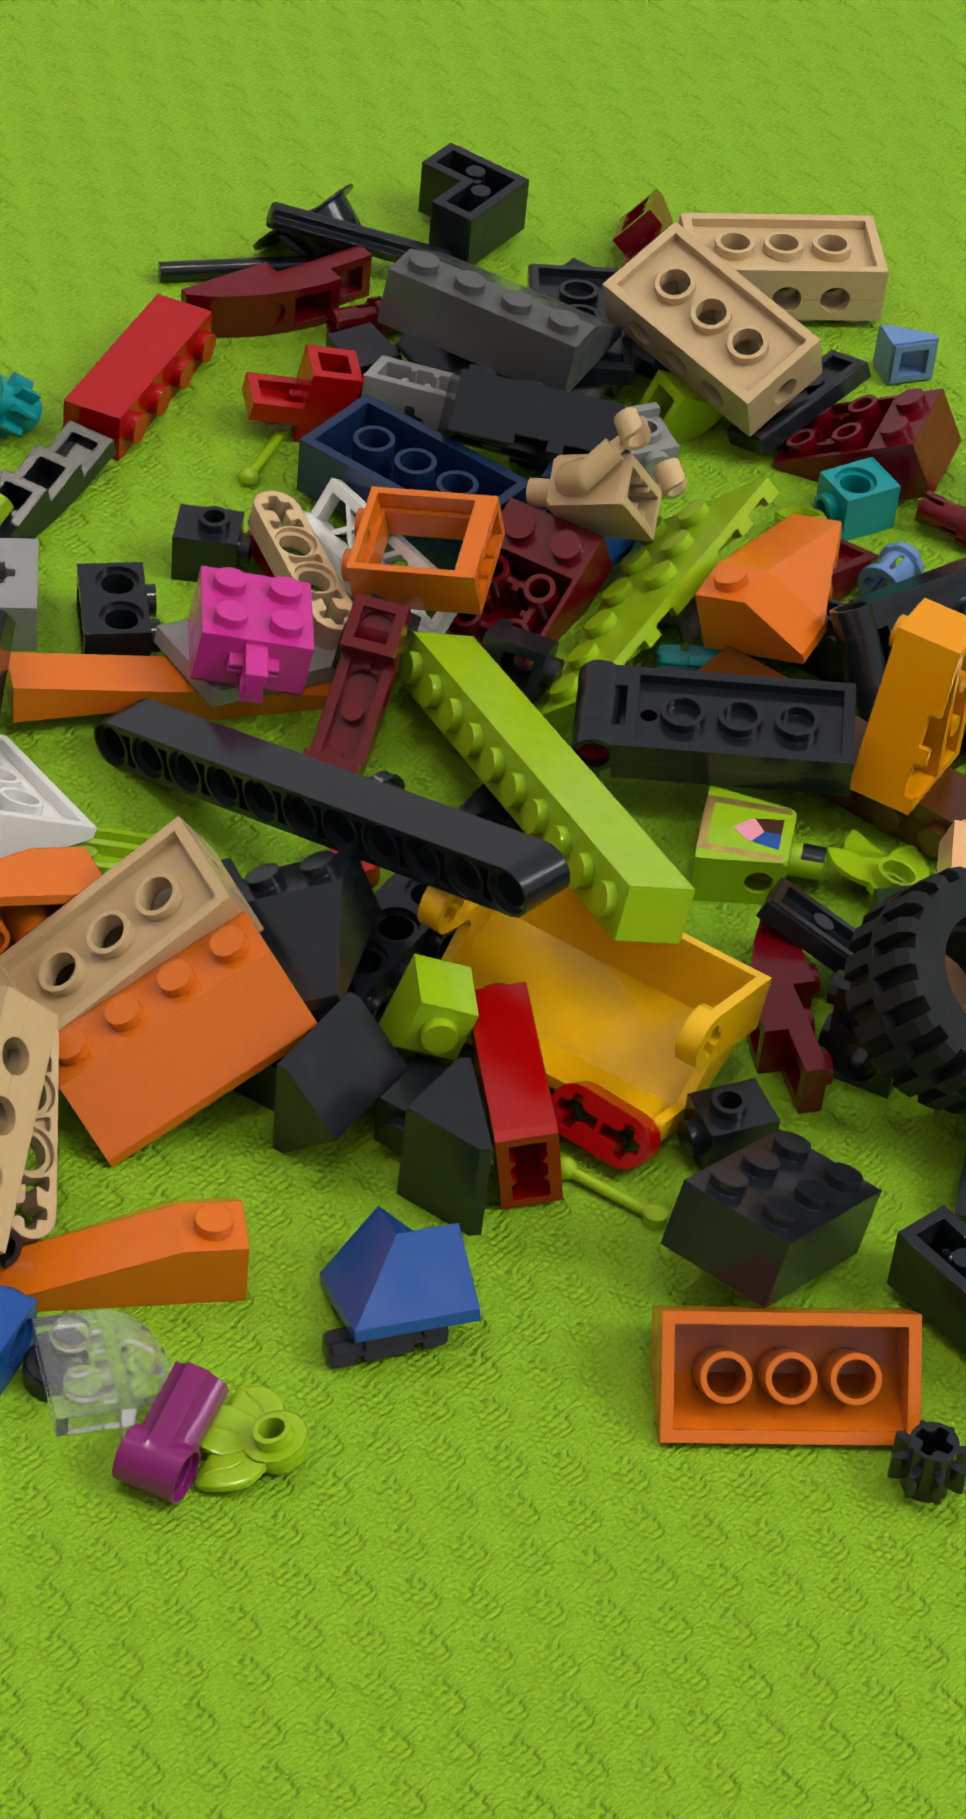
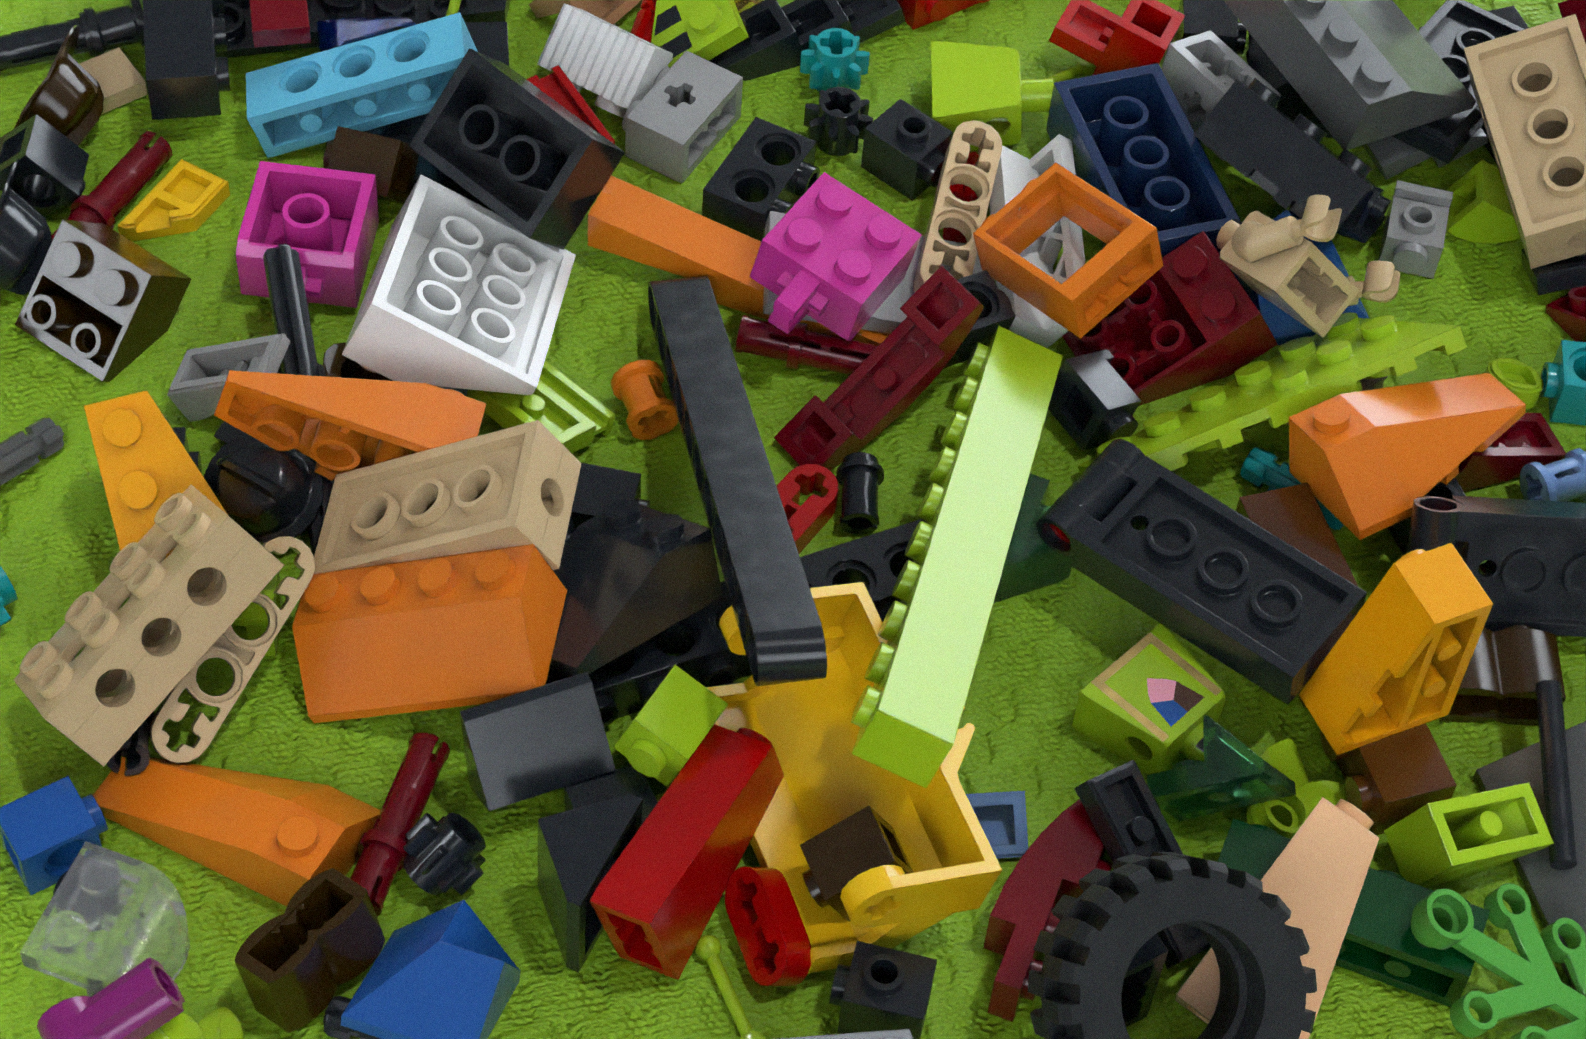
camera: 35 degrees right, 10 degrees up
(89, 504) = (834, 60): none -> teal gear
(134, 541) = (837, 121): none -> black gear
(158, 806) = (647, 405): none -> orange bush
(228, 471) = (984, 87): none -> lime torso
(265, 1213) = (382, 846): none -> dark red pin
(273, 718) = (801, 346): none -> dark red pin
(286, 1302) = (310, 950): none -> dark brown brick
(319, 1193) = (444, 854): none -> black gear
(640, 1043) = (847, 851): none -> dark brown brick
(856, 858) = (1225, 780): none -> clear green slope

